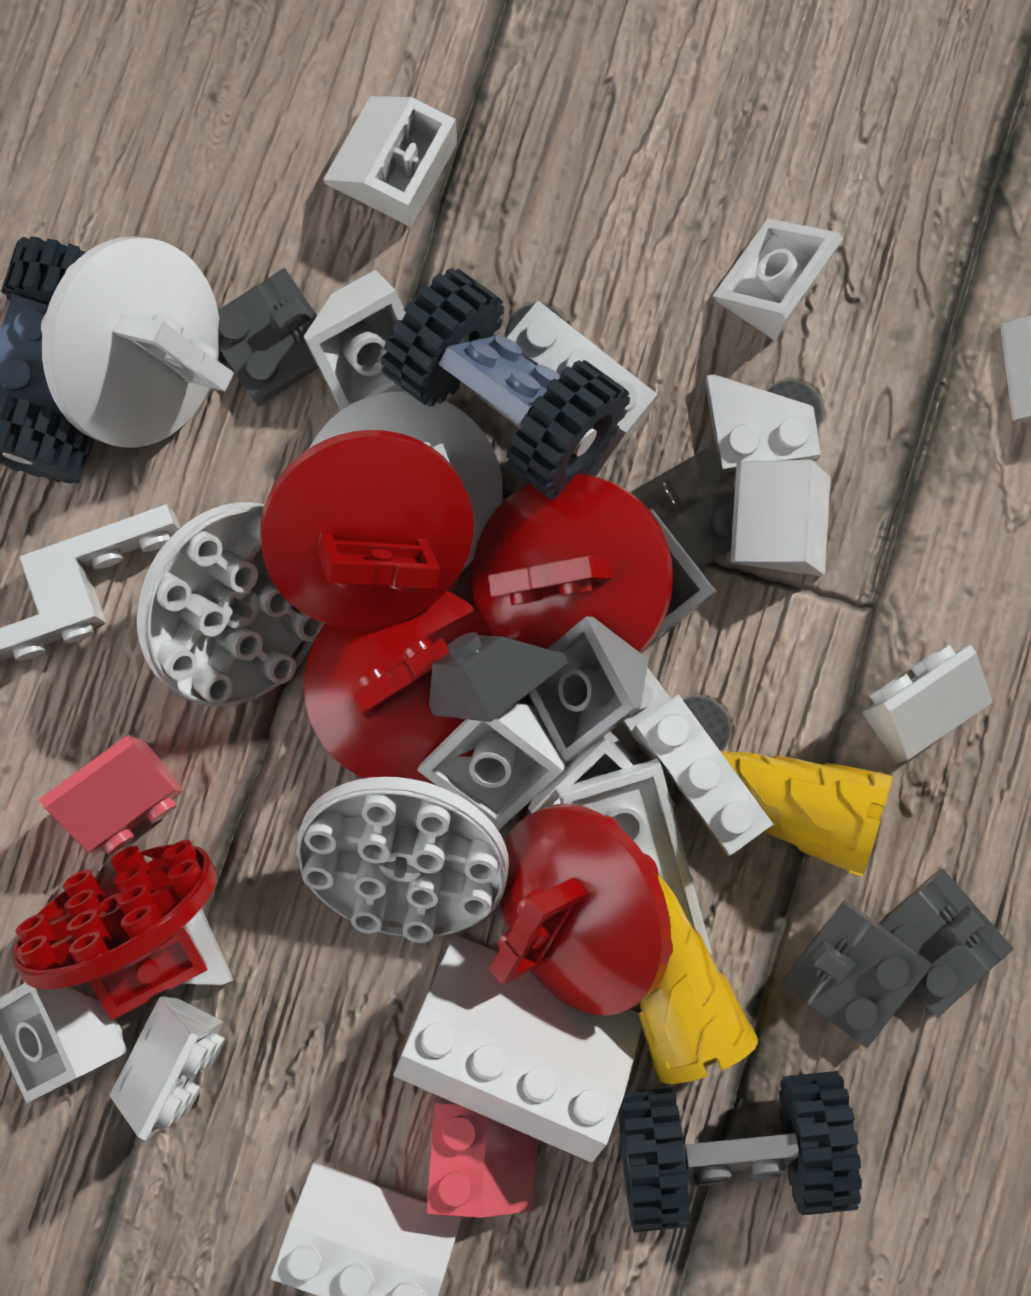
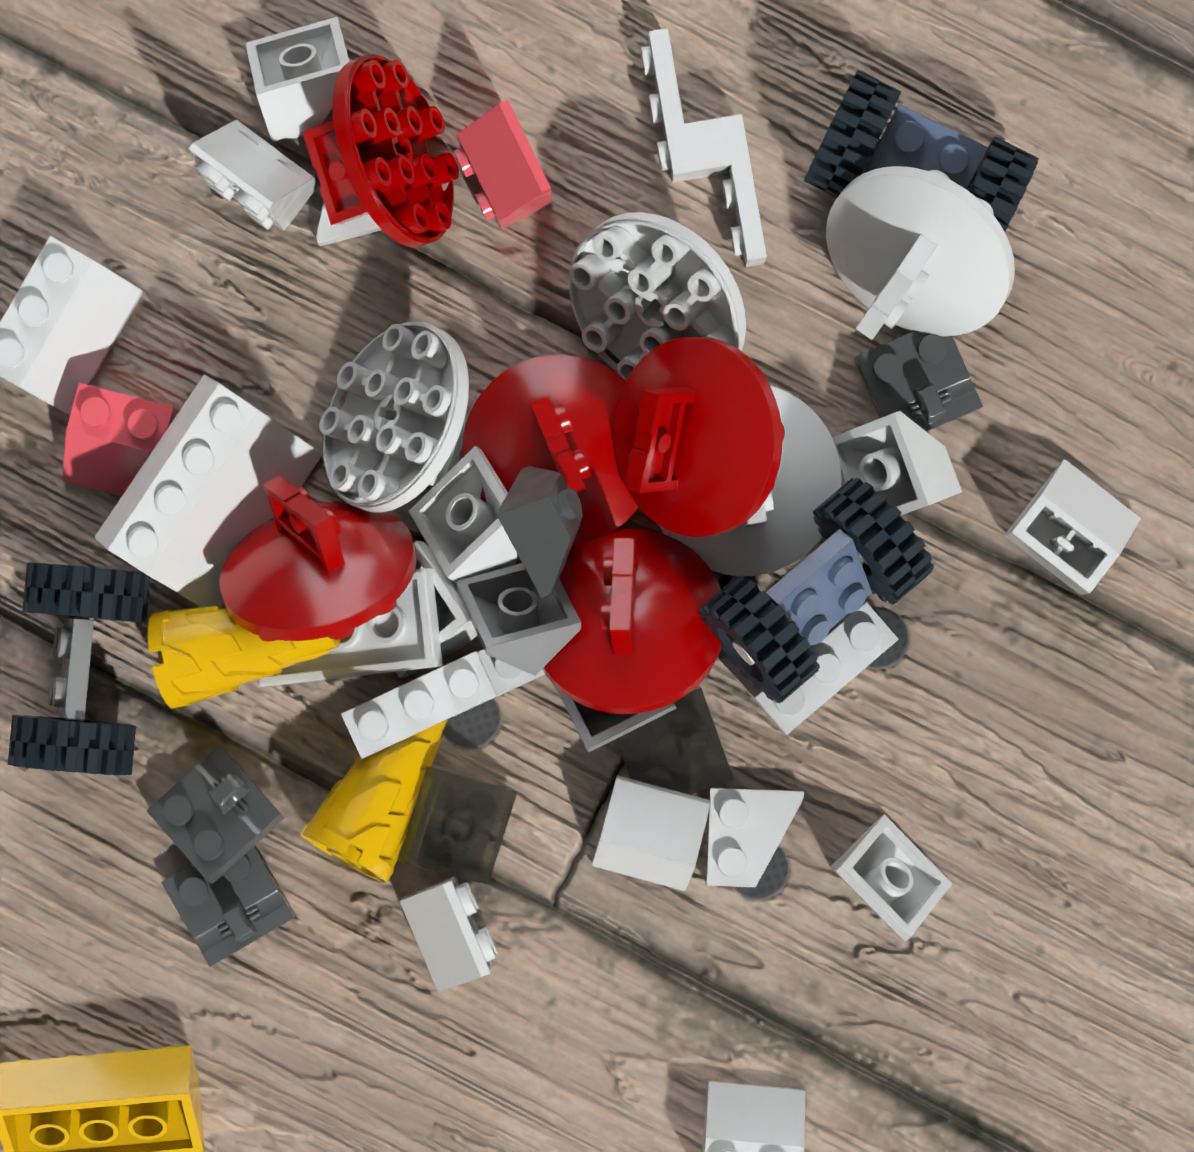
camera: 105 degrees right, 5 degrees up
(816, 716) = (457, 825): none -> clear smoke hinge

